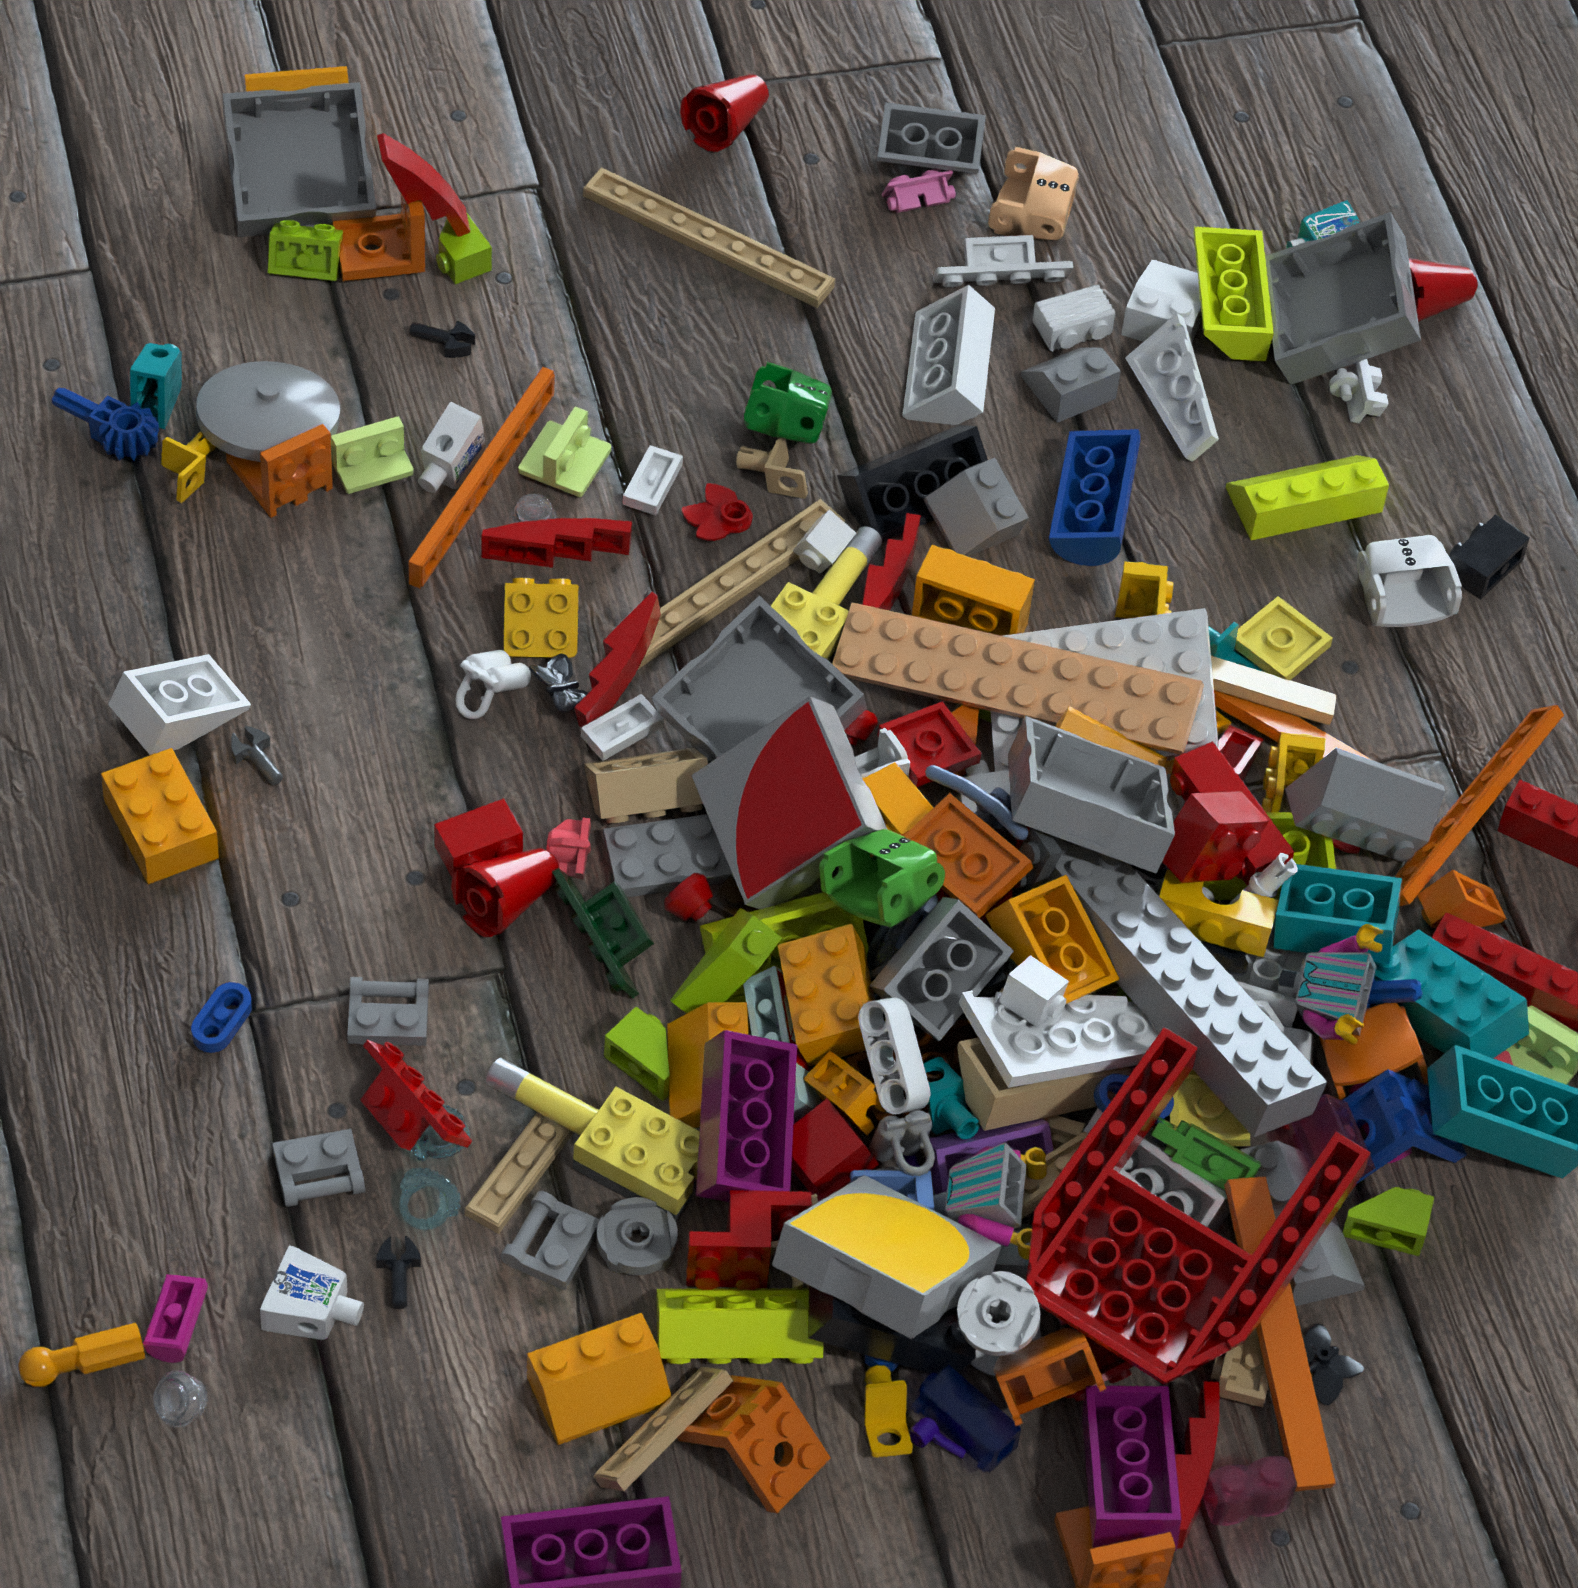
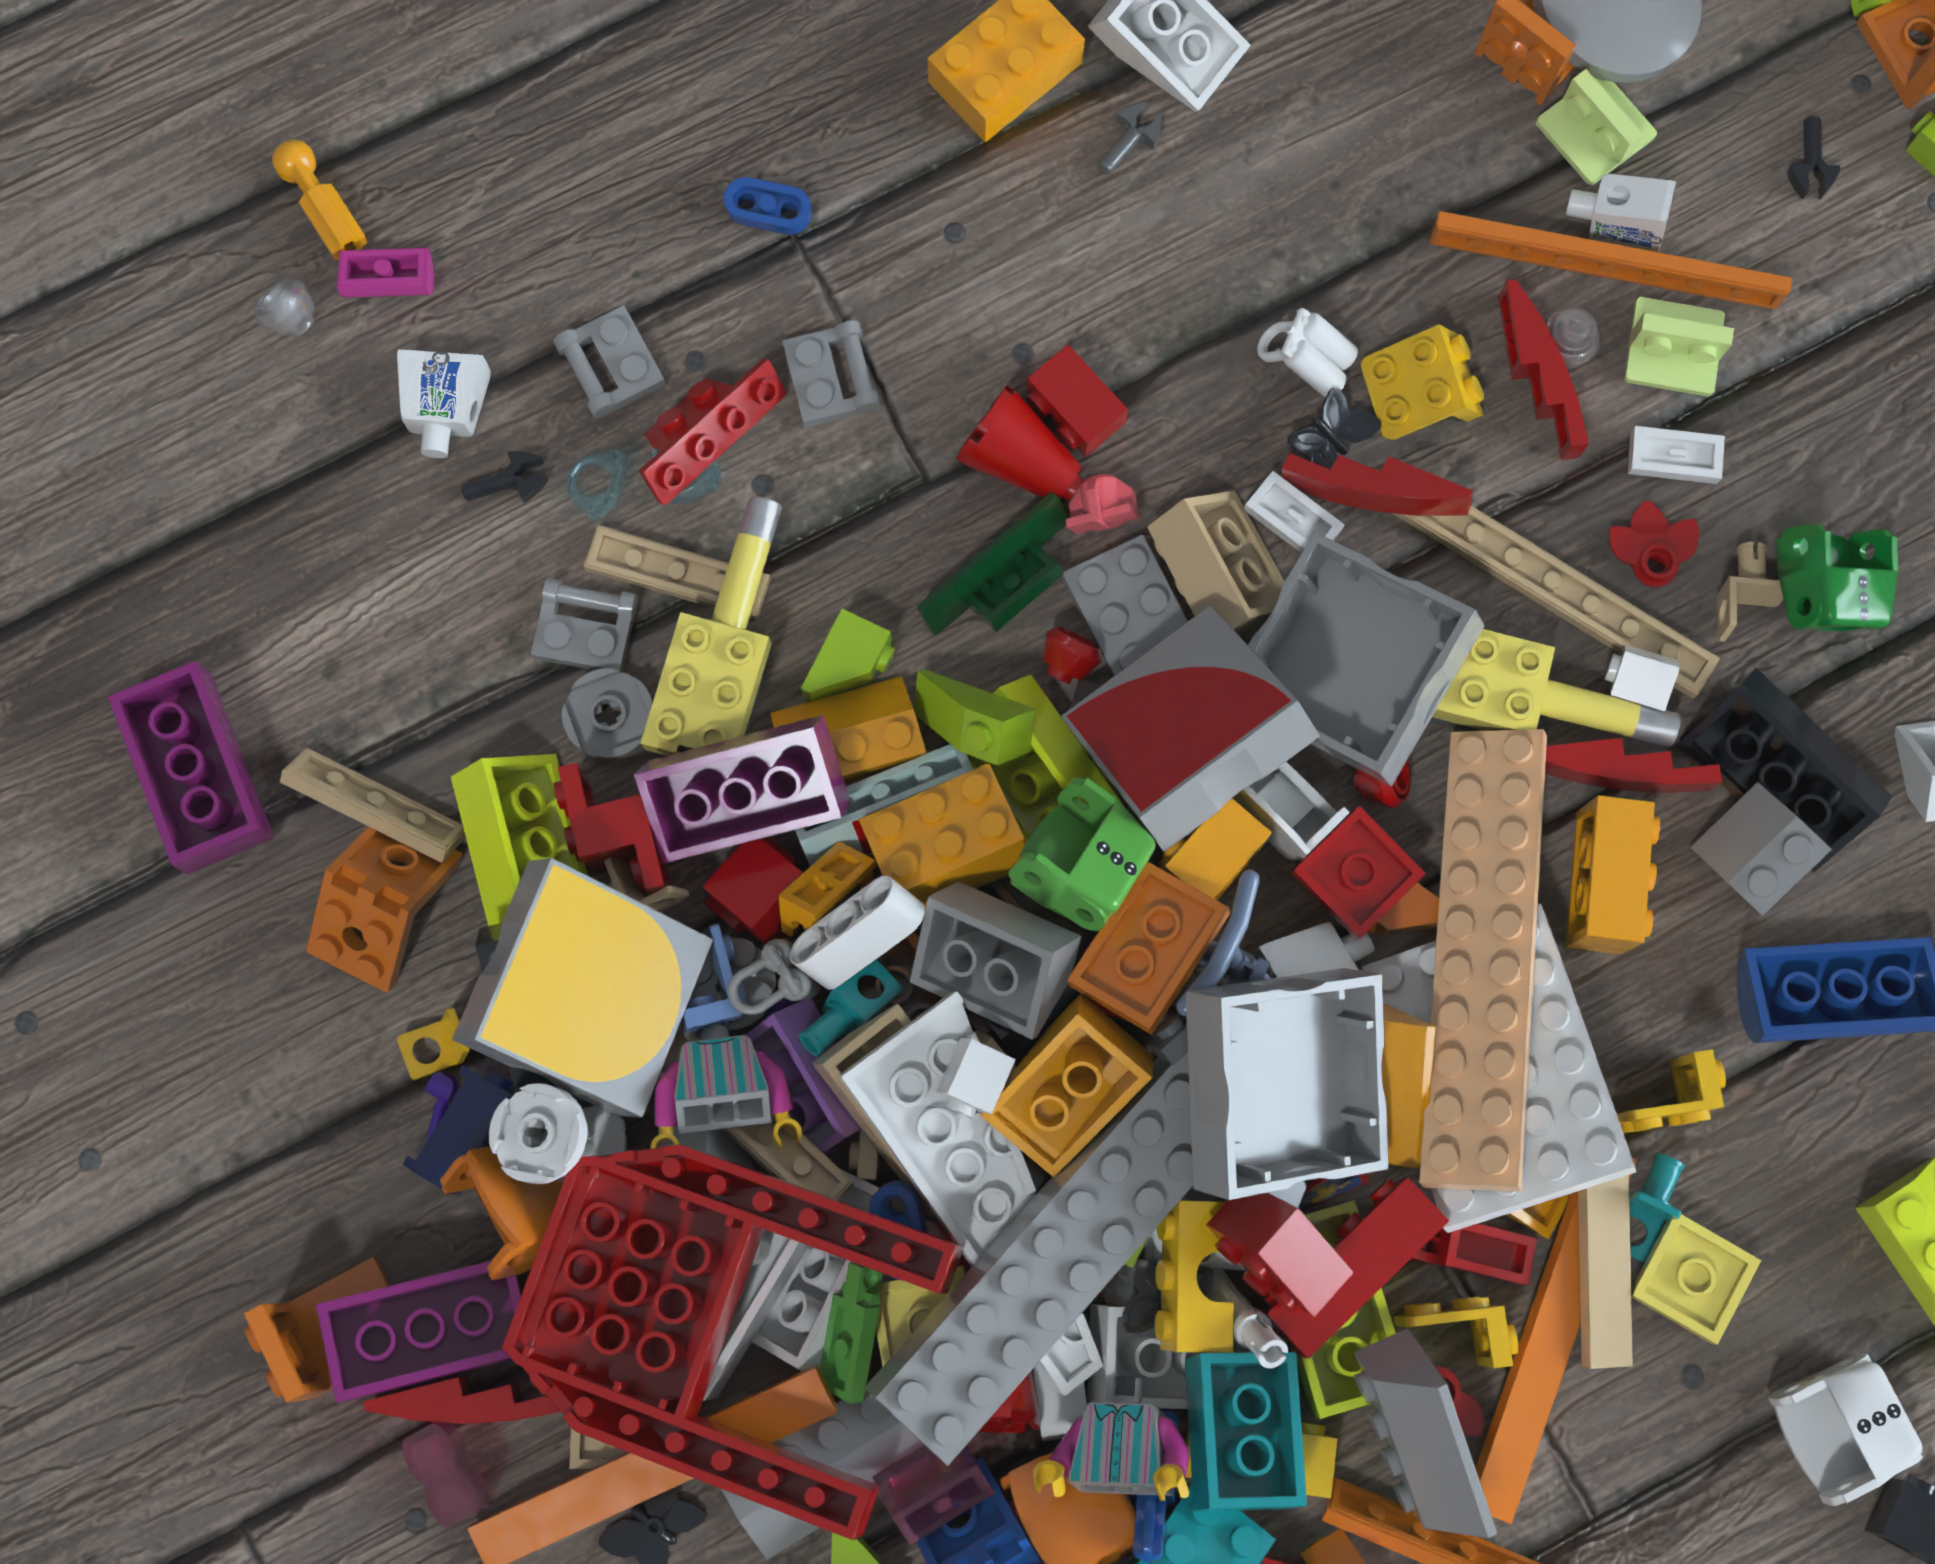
camera: 80 degrees right, 25 degrees up
(598, 1378) = (414, 720): light orange slope -> none

